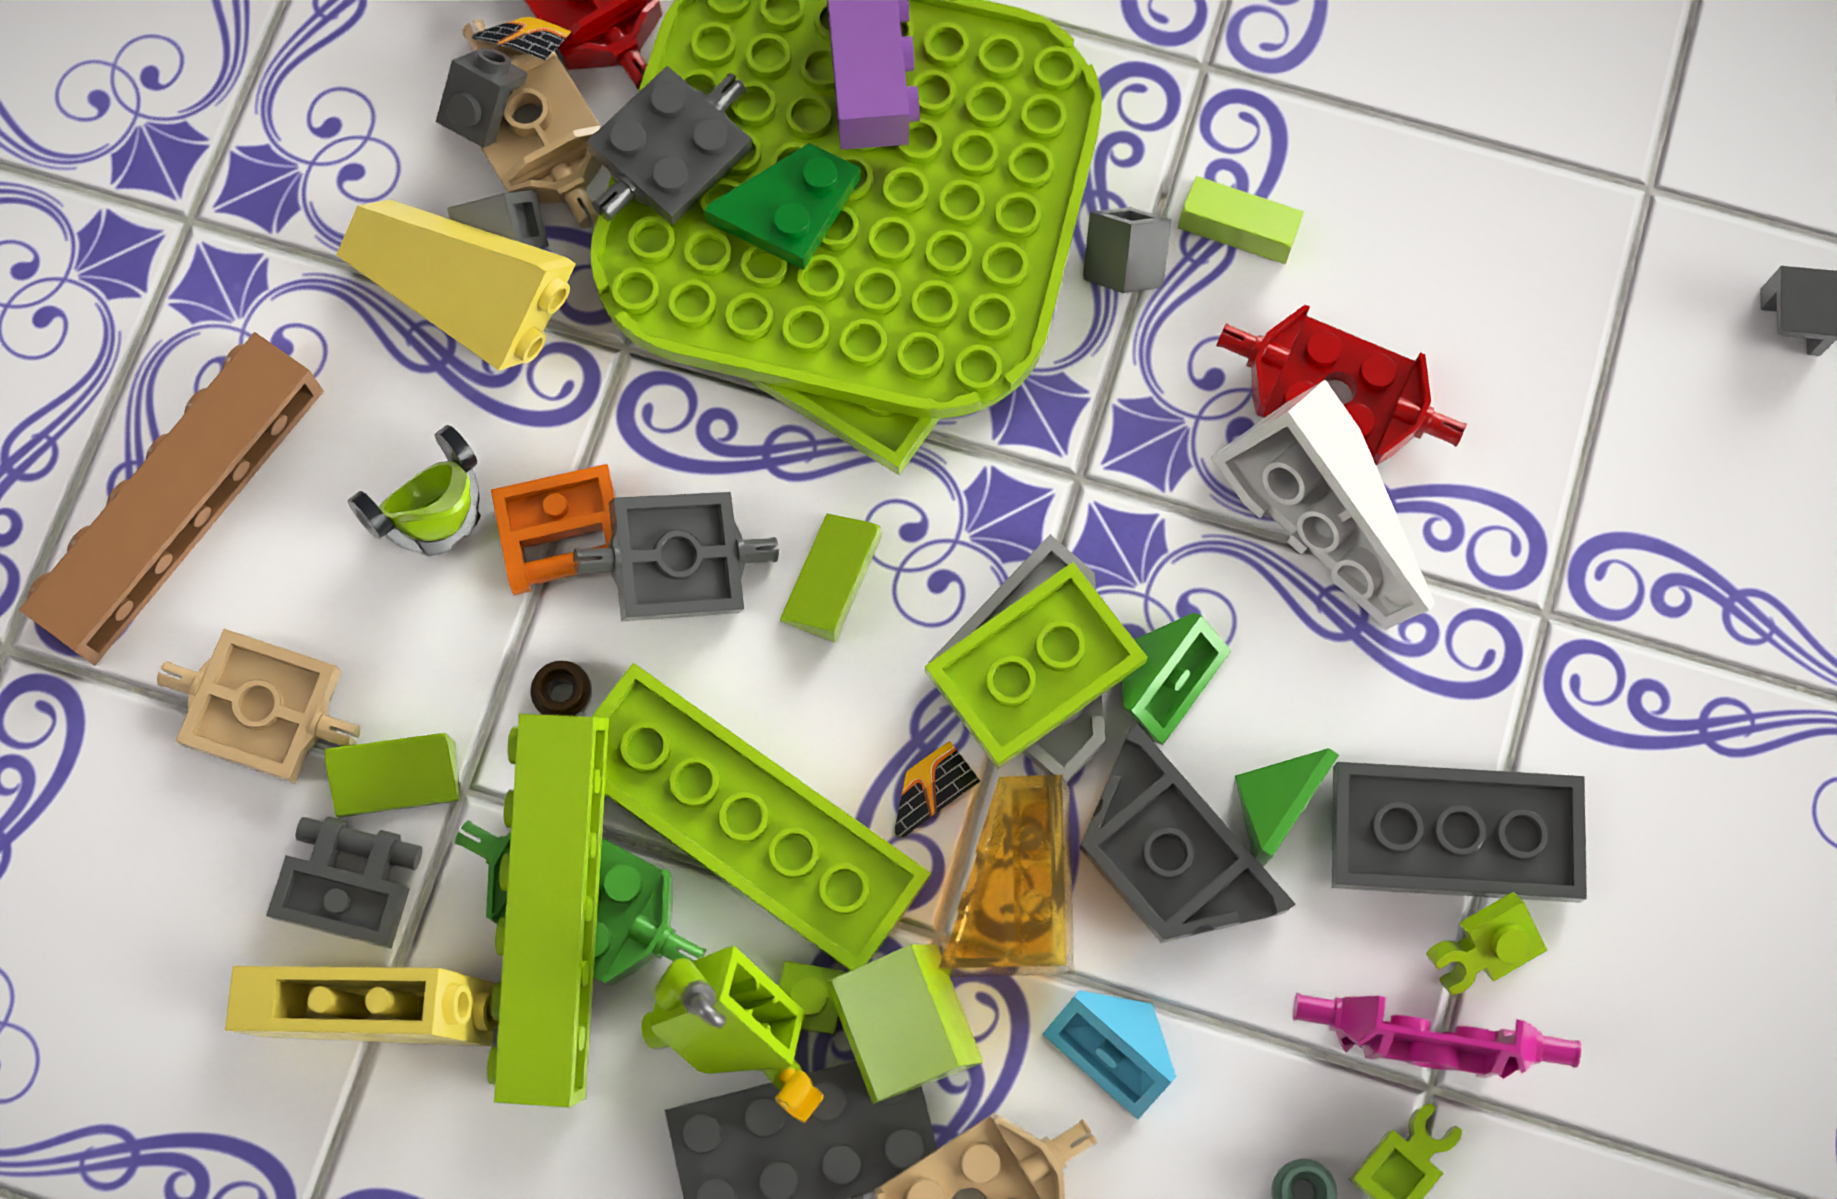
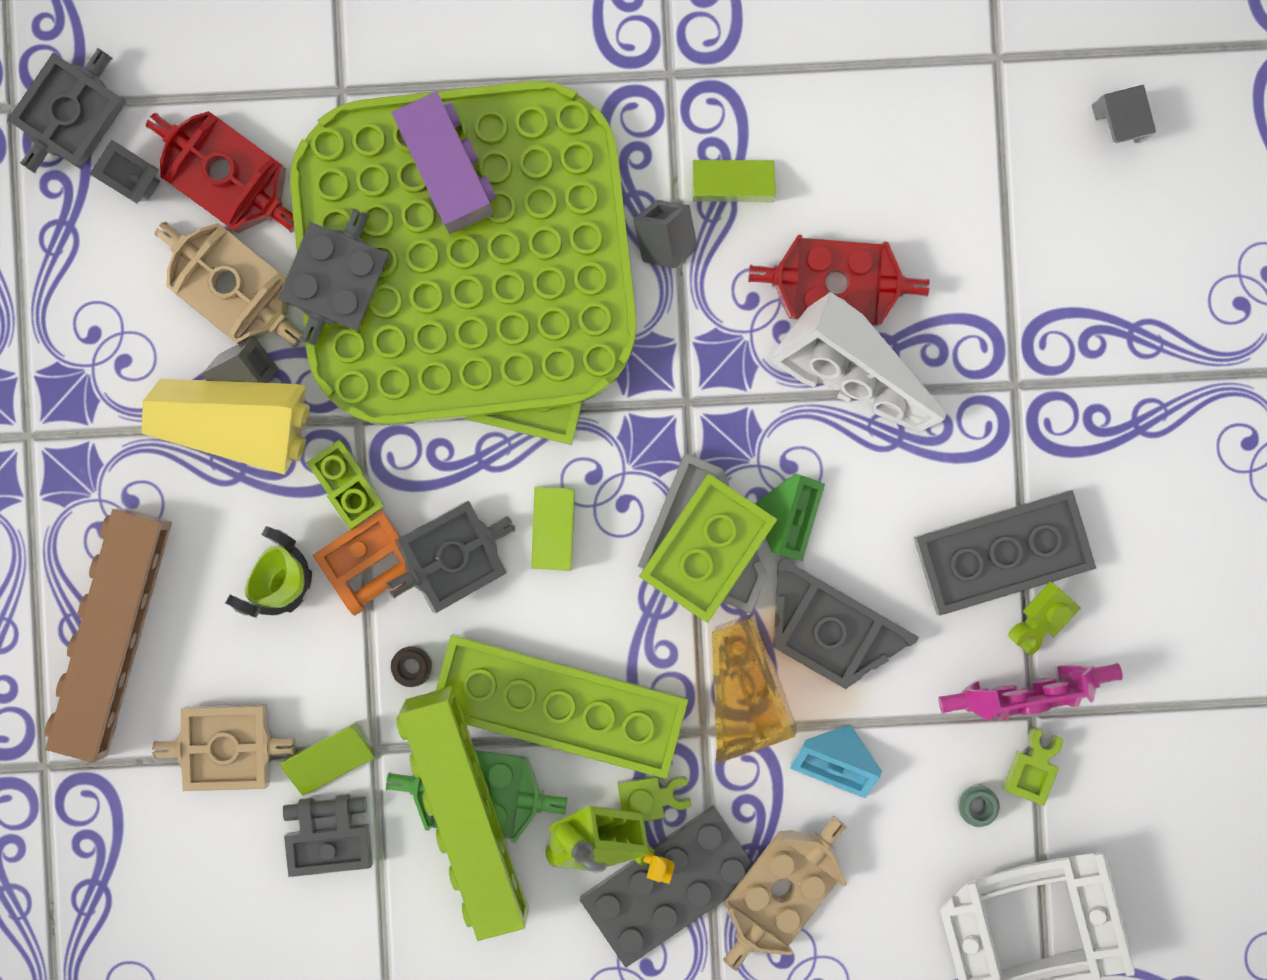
camera: 20 degrees left, 15 degrees up
(361, 1004) = (372, 910): light yellow slope -> none
(478, 94) = (188, 284): dark grey bracket -> none
(526, 35) = (201, 226): sticker -> none
(574, 416) = (346, 484): none -> lime slope
(788, 204) = (431, 290): green wing -> none
(904, 1021) = (707, 799): lime slope -> none
(932, 786) = (667, 639): sticker -> none
(1277, 796) = (887, 571): bright green slope -> none

